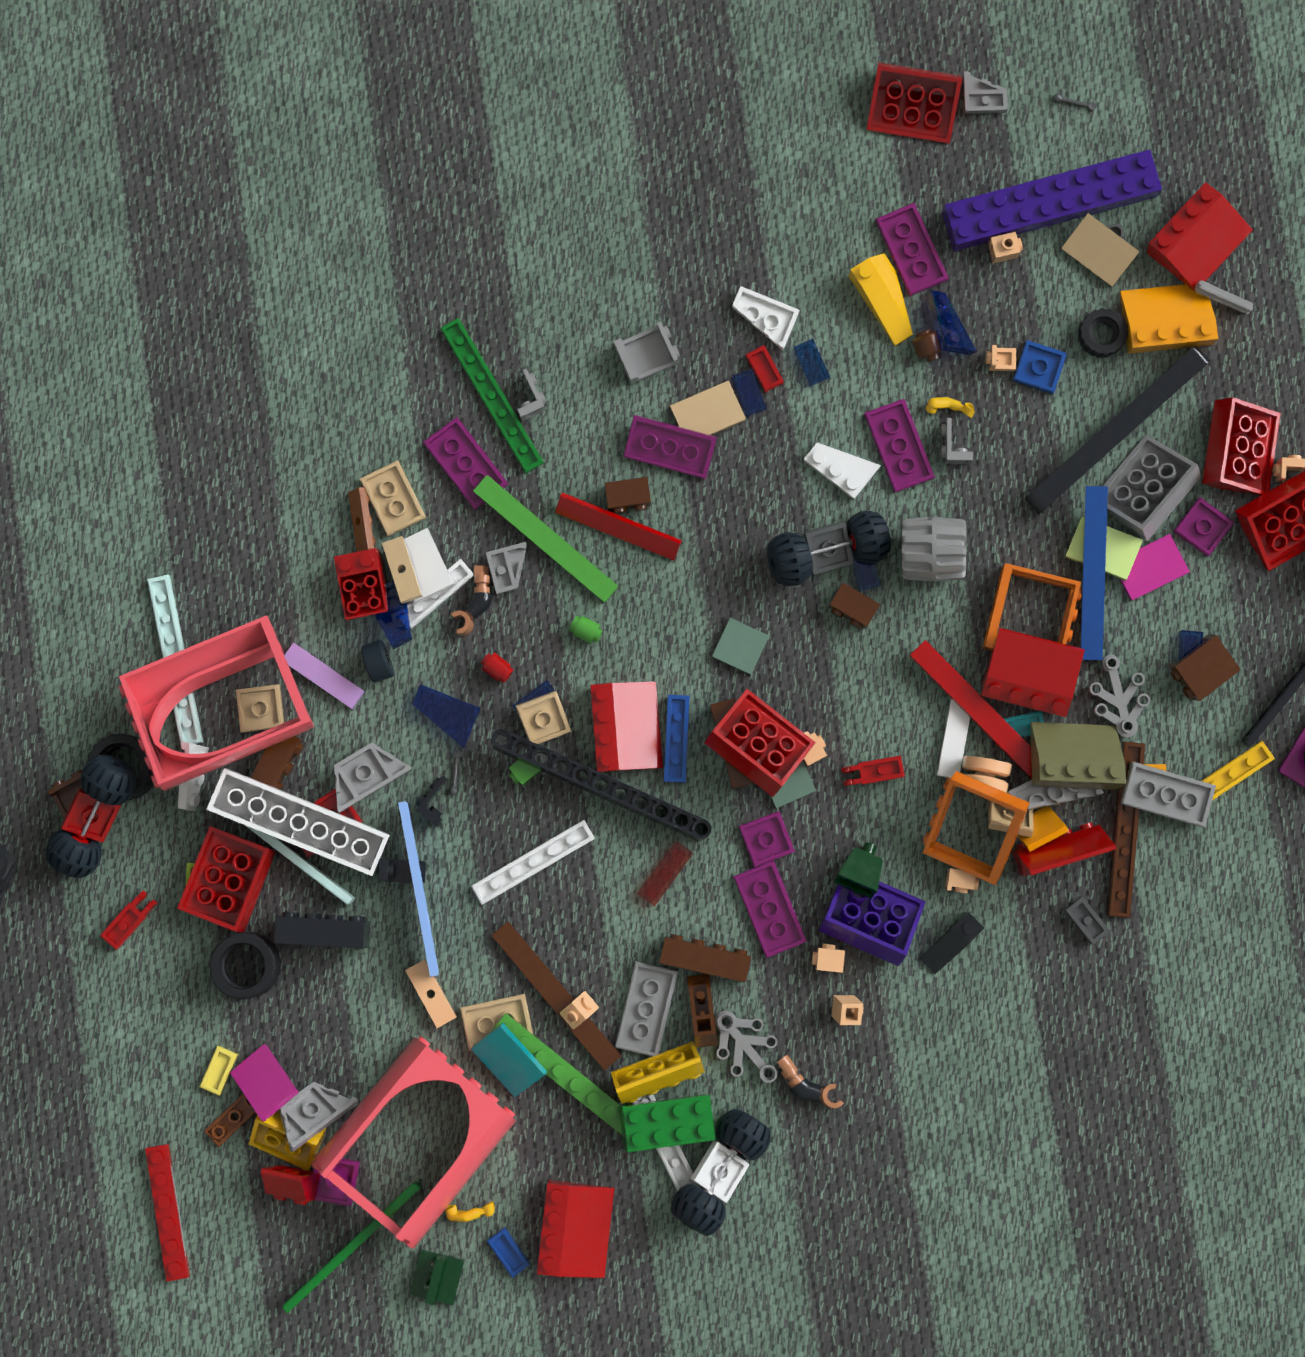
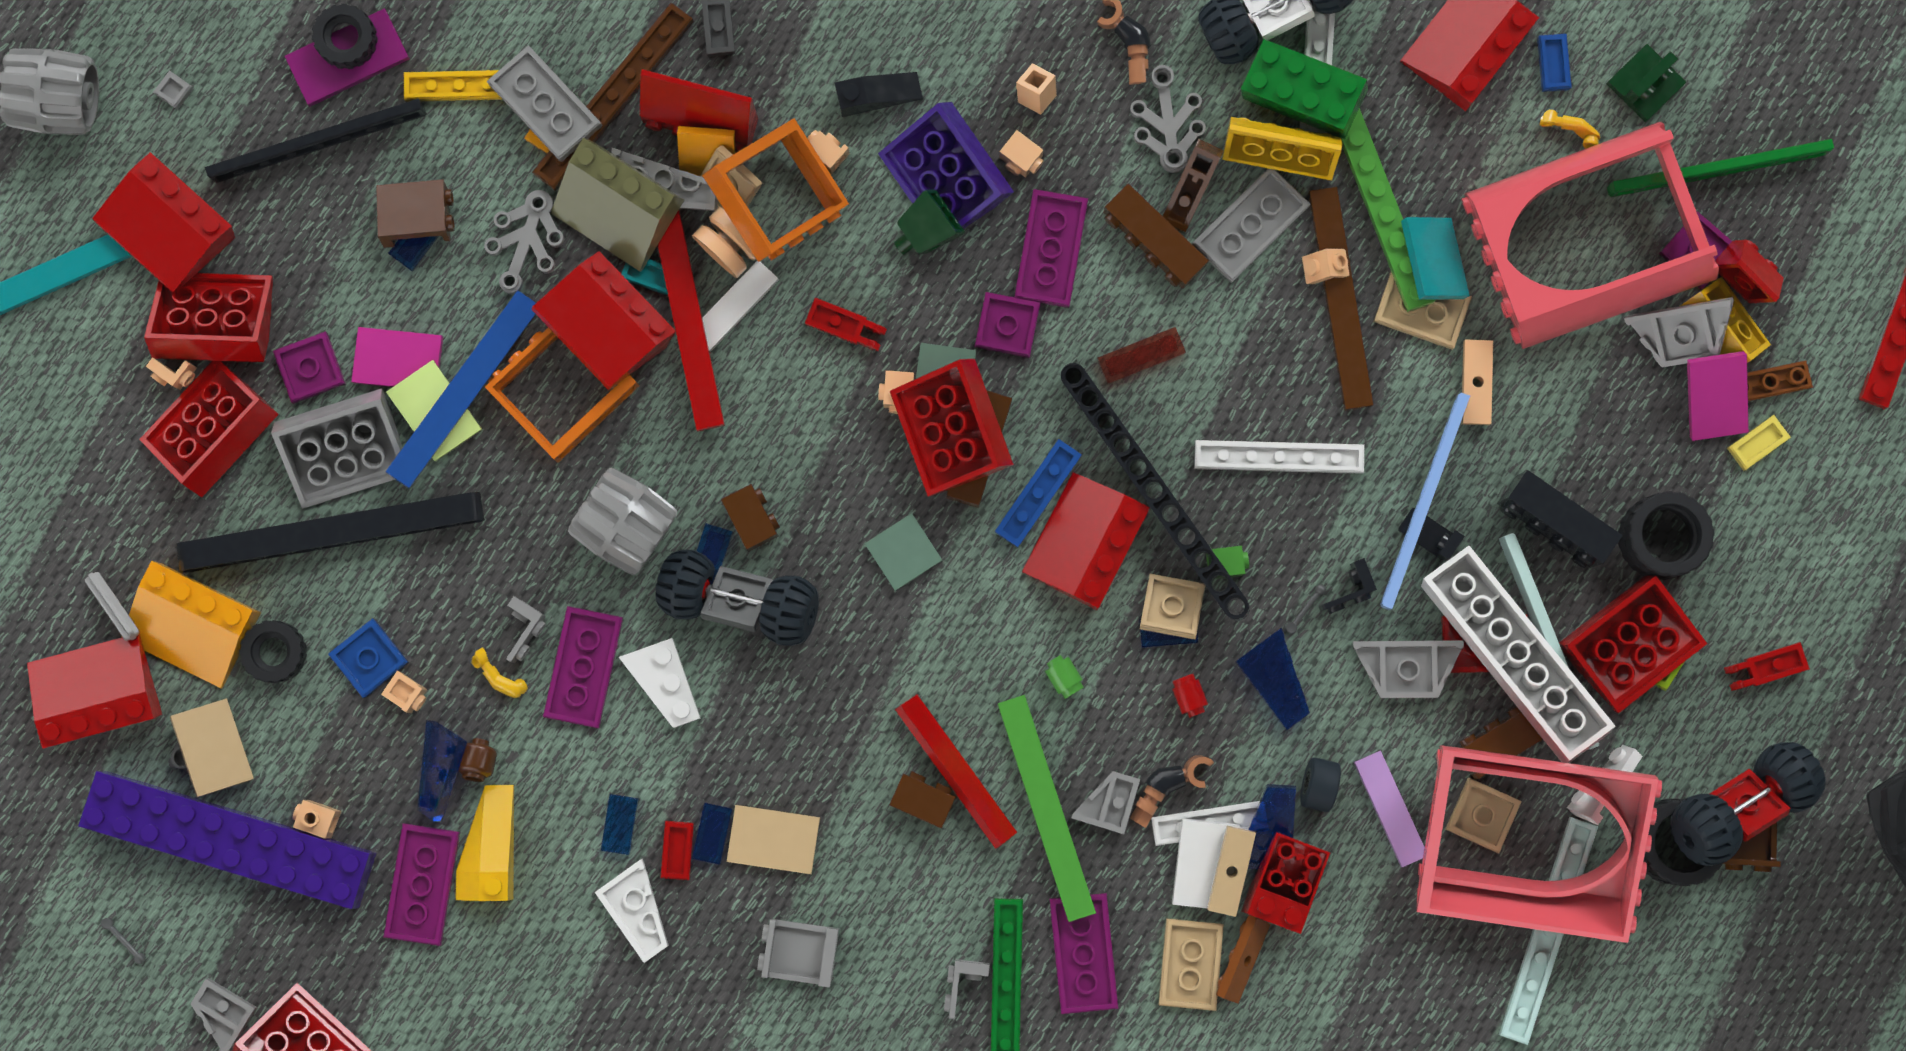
camera: 150 degrees left, 0 degrees up
(670, 446) = (841, 826): magenta tile -> none

